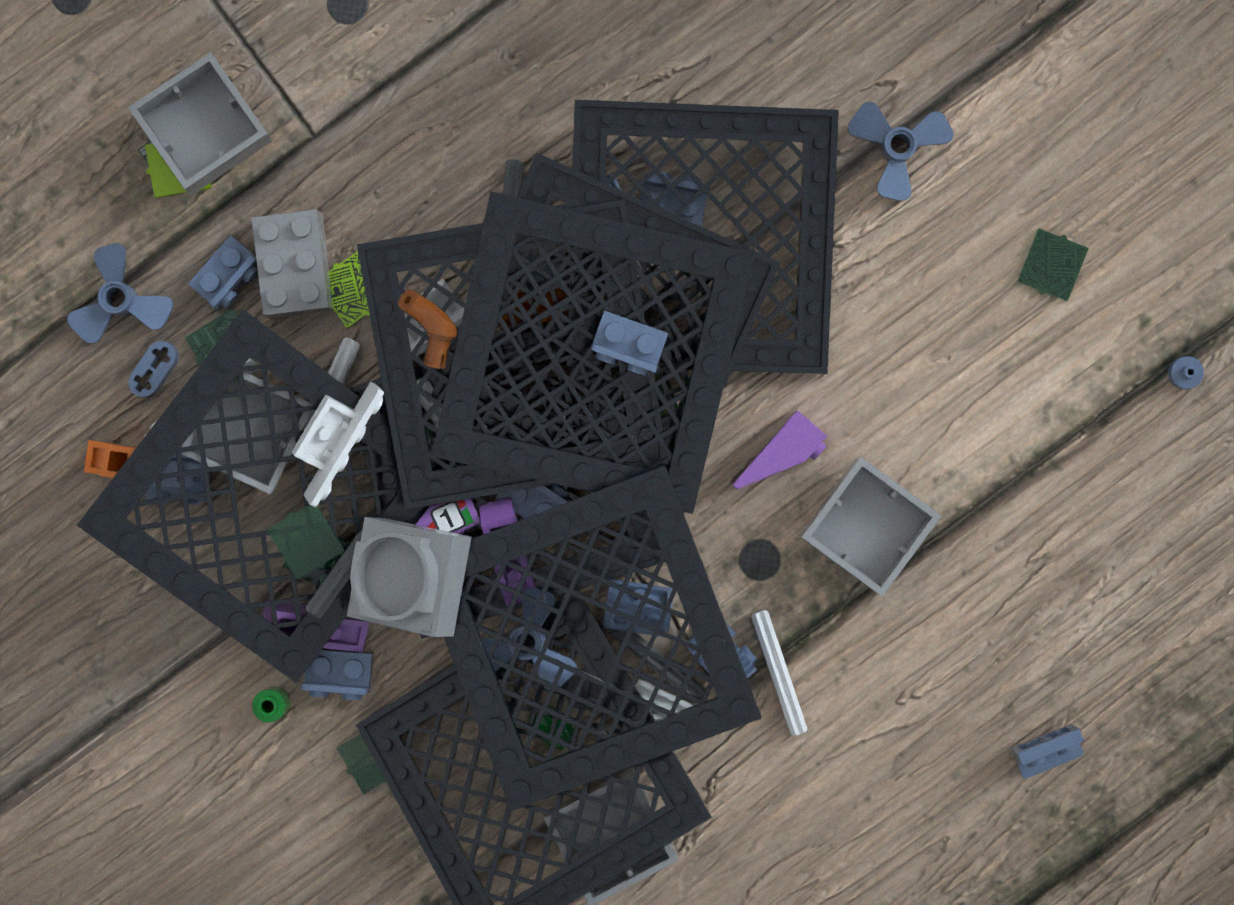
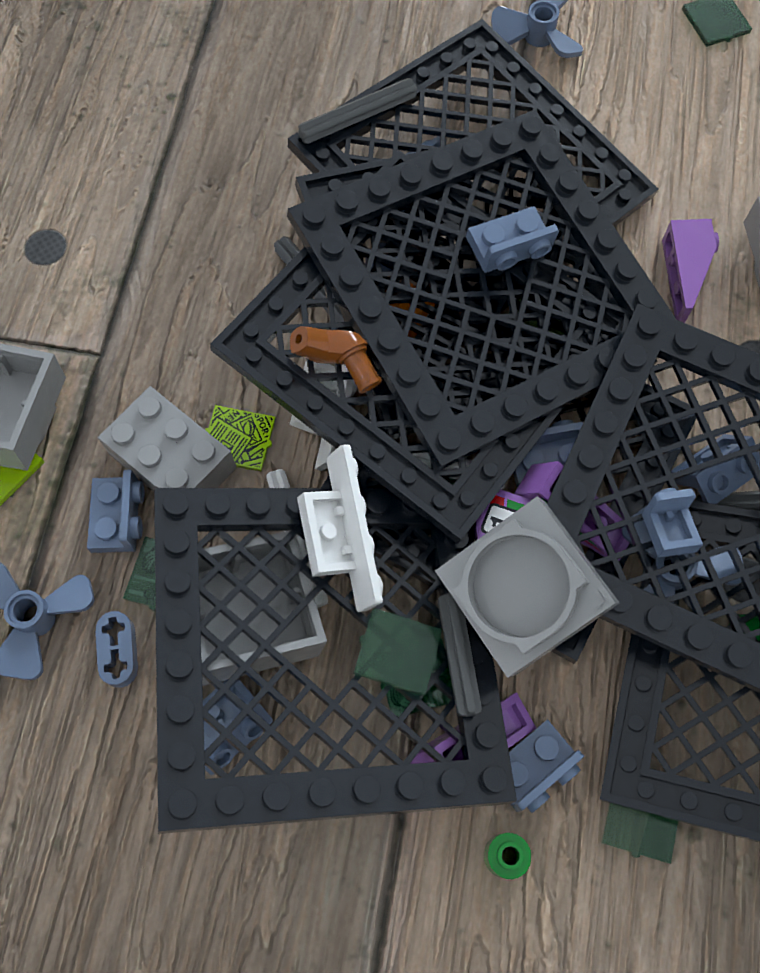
camera: 45 degrees left, 20 degrees down
(106, 458) = (137, 766): orange brick -> none
(529, 622) = (671, 522): none -> sand blue bracket
(647, 122) = (357, 110): none -> dark grey axle

